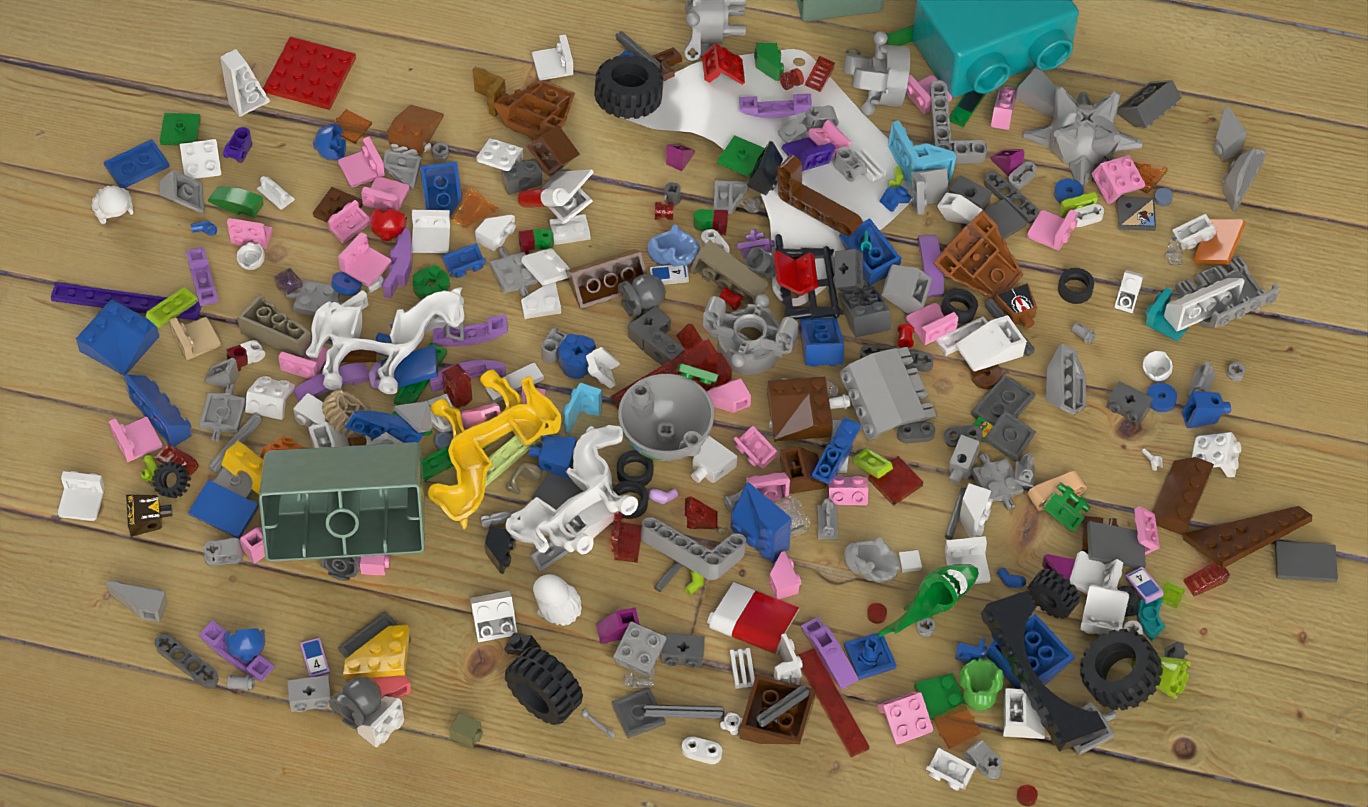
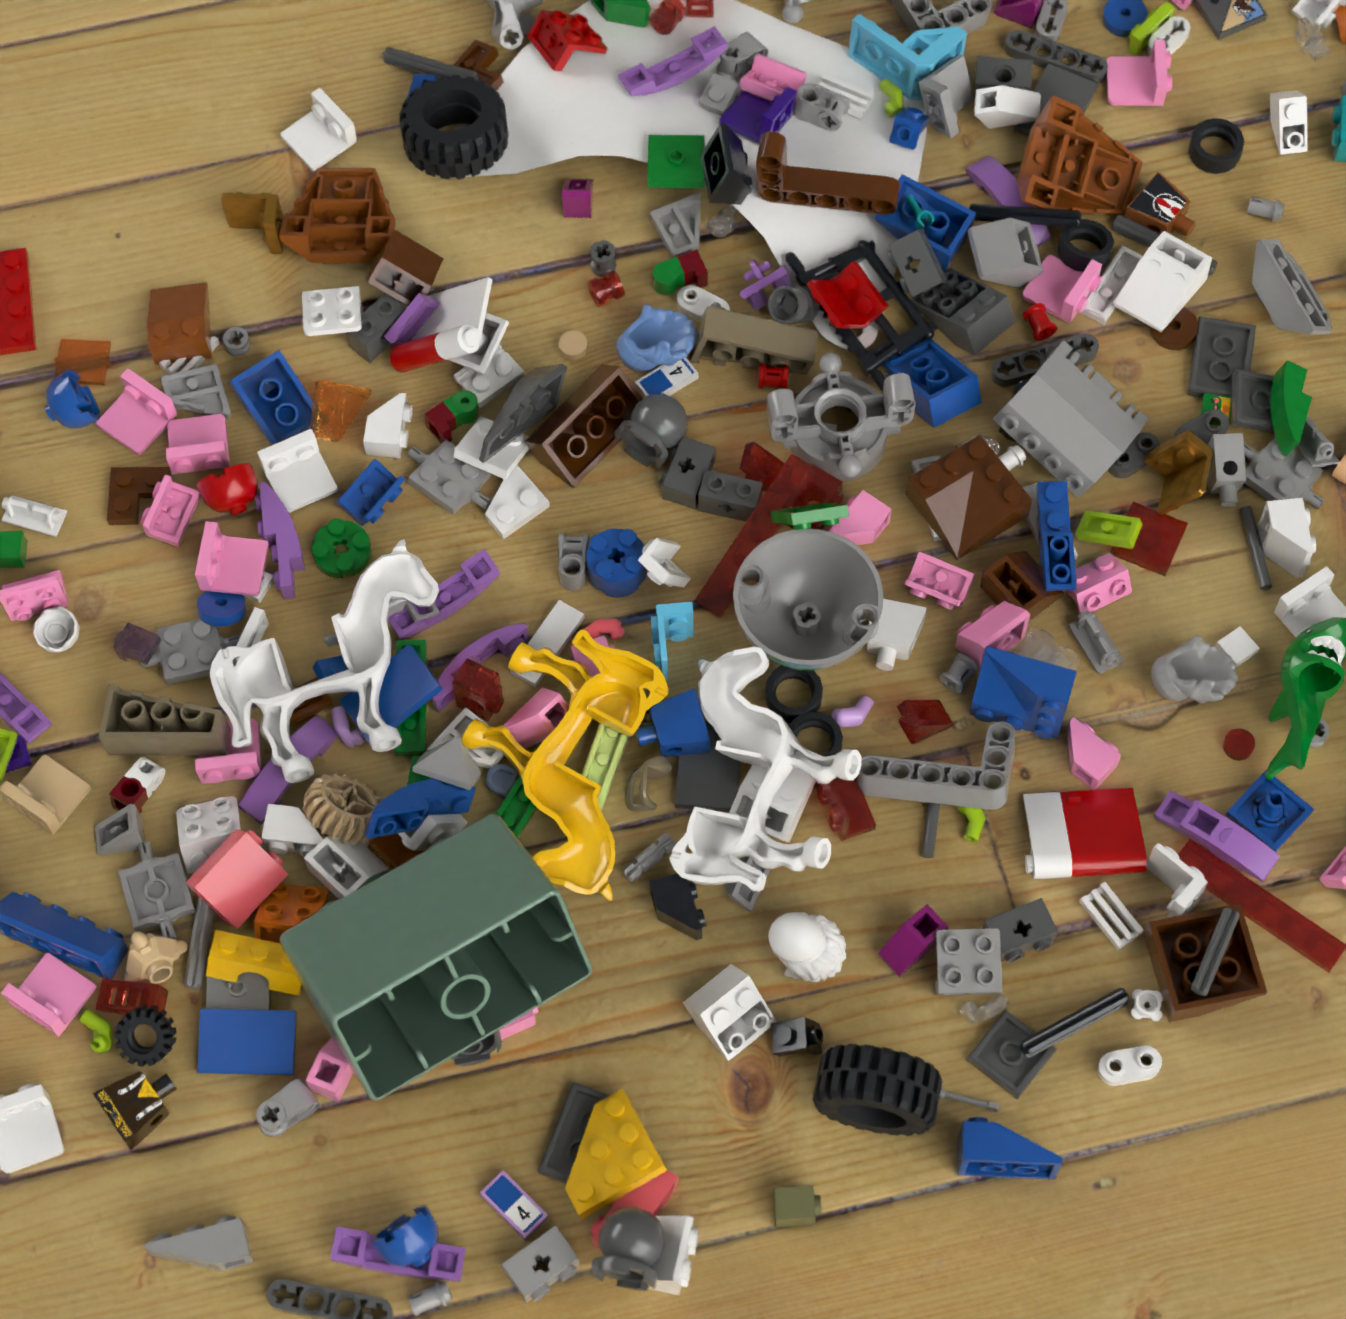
camera: 25 degrees left, 10 degrees up
(199, 442) = (152, 957): none -> tan rock
(268, 422) = (237, 877): none -> coral brick
(542, 178) = (412, 319): none -> medium lavender tile
(548, 386) = (604, 626): none -> coral arm
(577, 251) = (529, 402): none -> dark grey wedge
(593, 754) = (996, 1151): none -> blue slope
(627, 233) = (573, 345): none -> tan tile
(935, 274) = (1033, 215): none -> black axle
(937, 443) = (1184, 466): none -> pearl gold bracket
(1022, 442) = (1289, 406): none -> green slope

